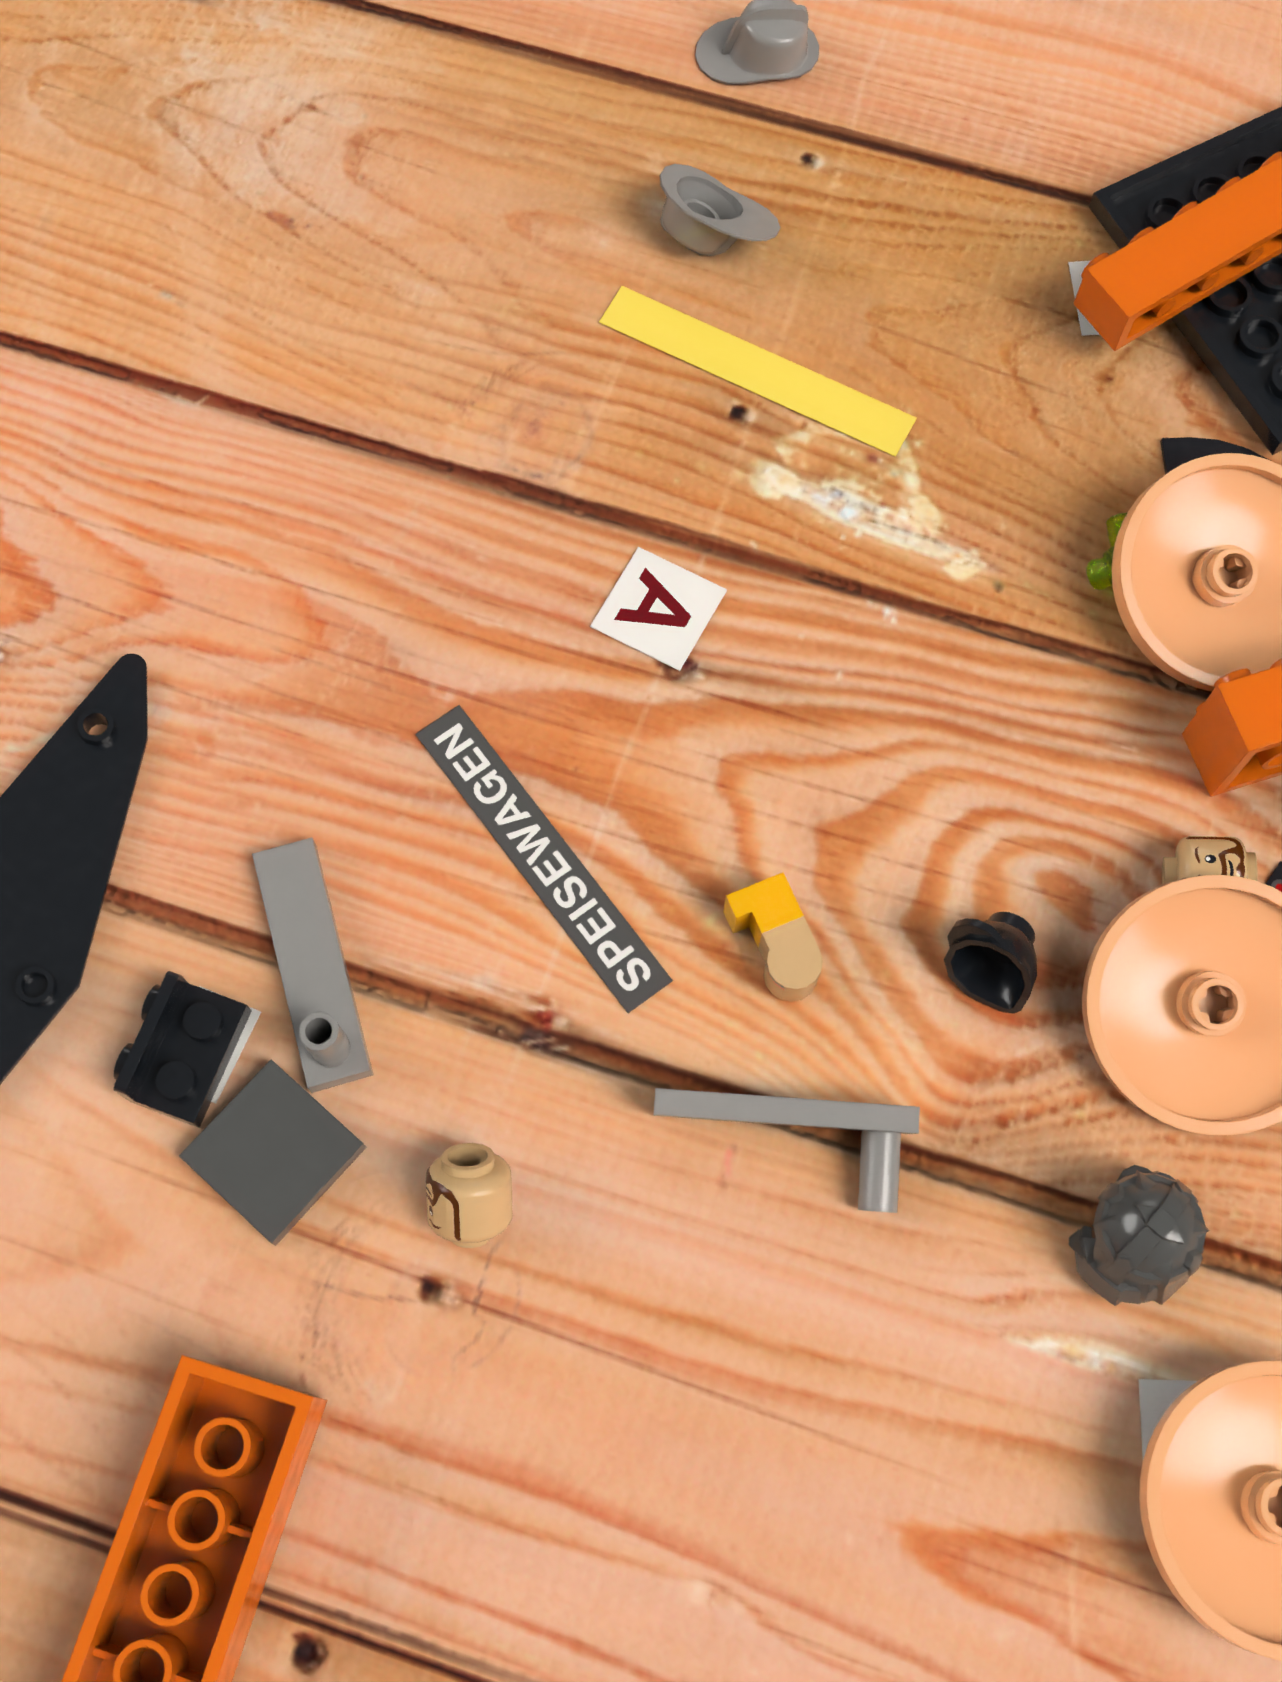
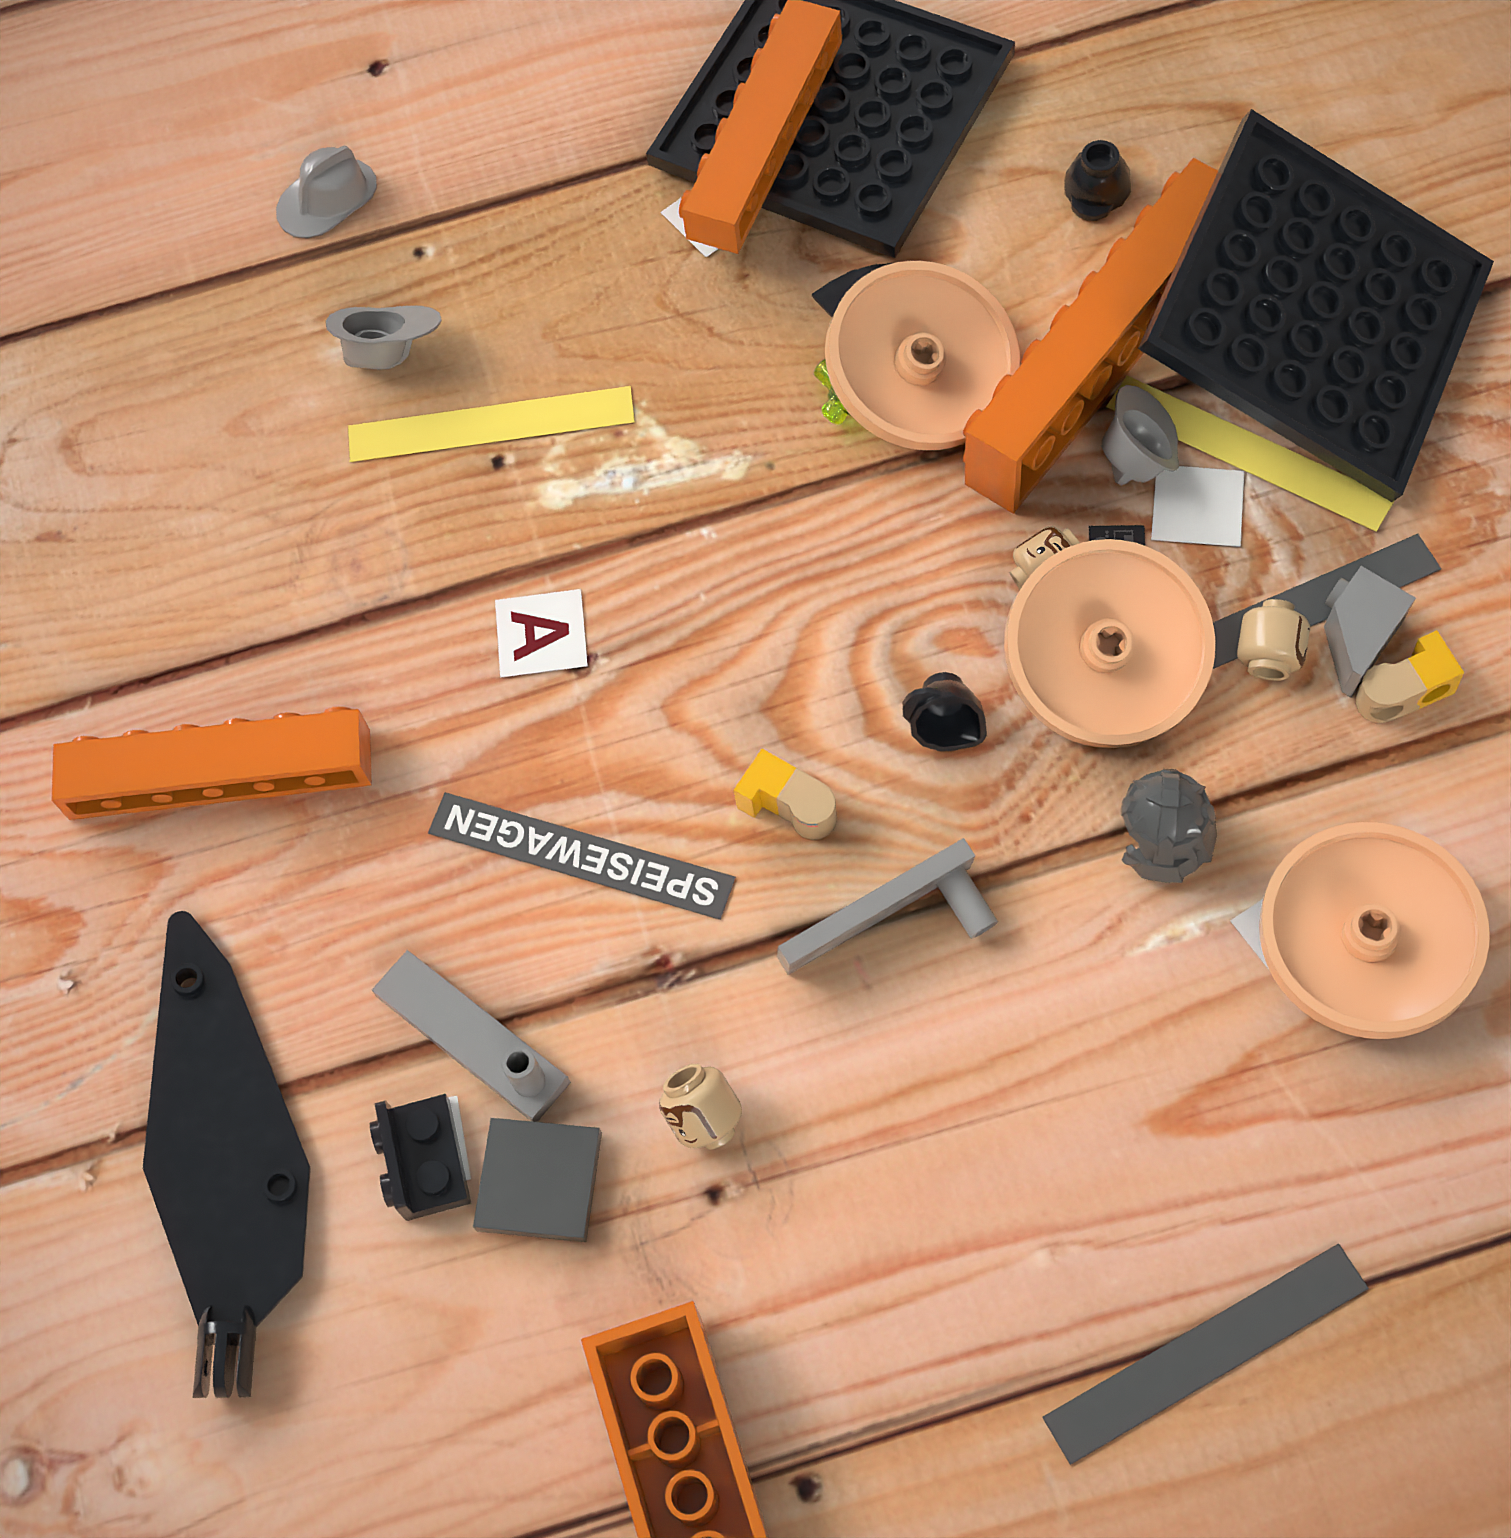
camera: 25 degrees left, 5 degrees down
(266, 533) = (211, 763): none -> orange brick

